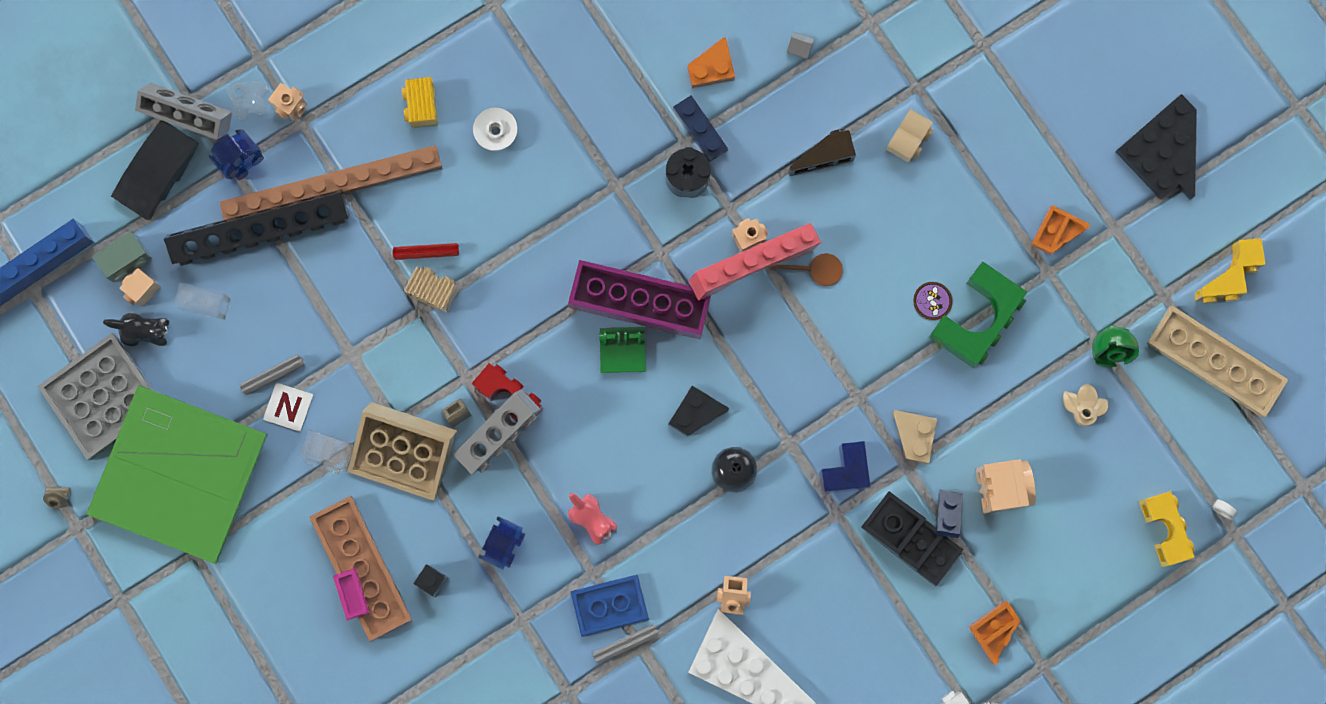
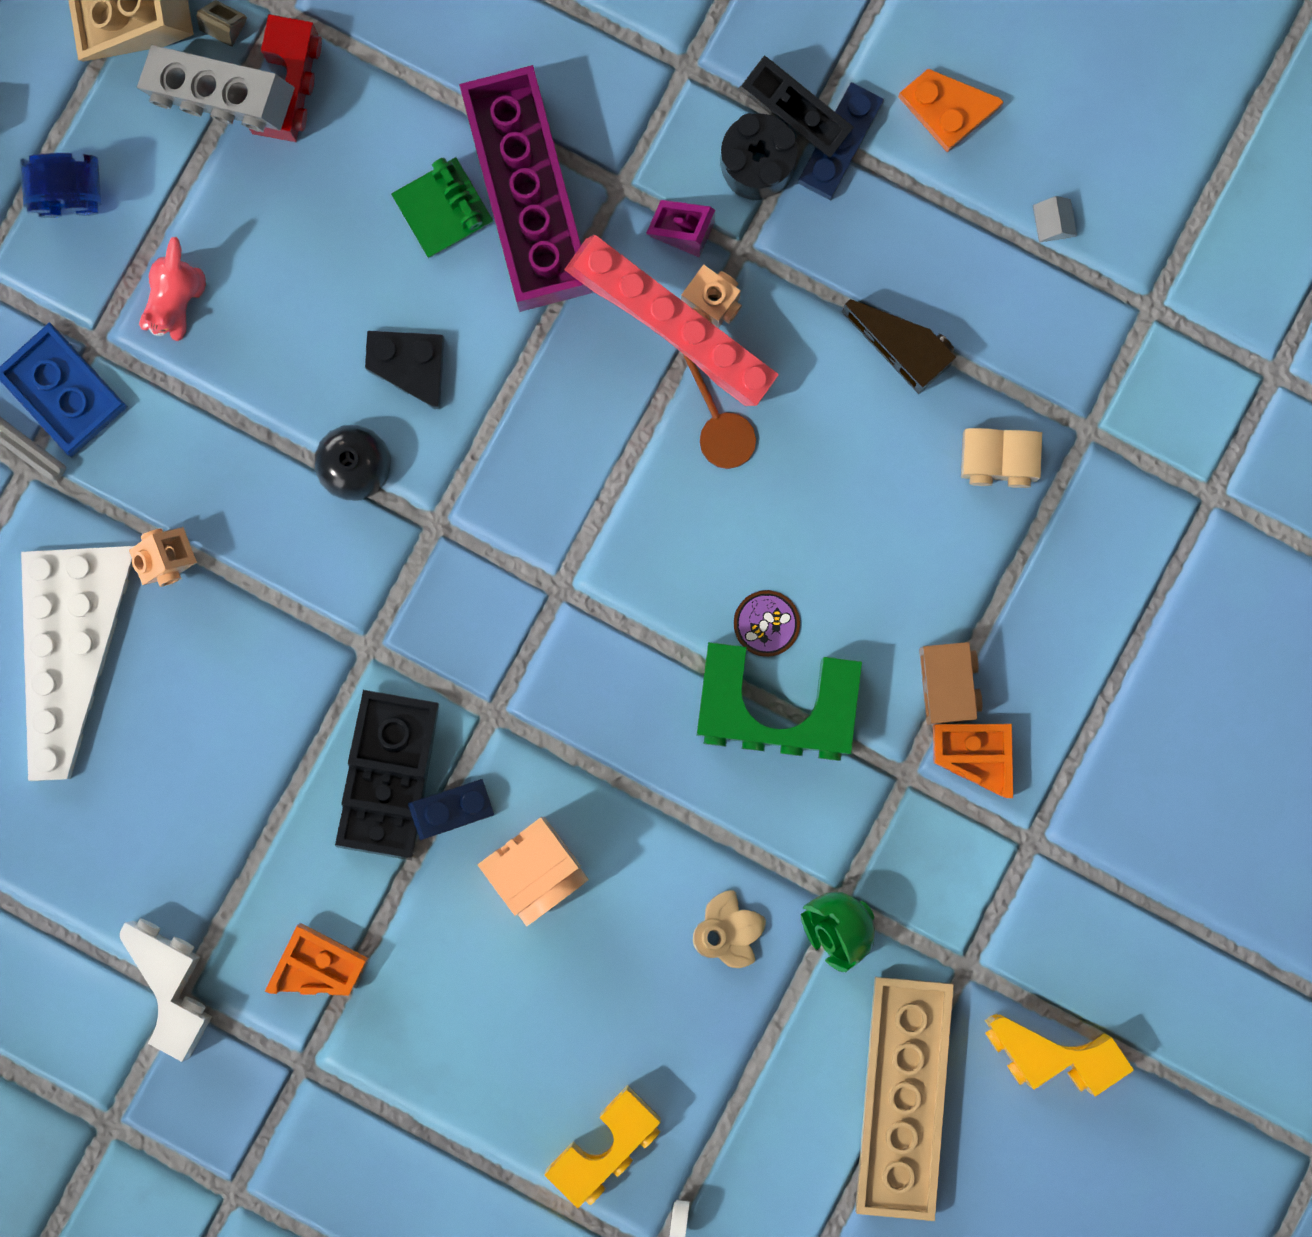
camera: 65 degrees right, 5 degrees up
(672, 140) = (795, 106): none -> black slope
(702, 230) = (682, 225): none -> magenta slope
(851, 475) = (433, 636): clear blue brick -> none
(915, 434) = (546, 701): tan wing -> none
(1014, 224) = (949, 683): none -> medium nougat brick
(1165, 150) = (1199, 856): black wing -> none

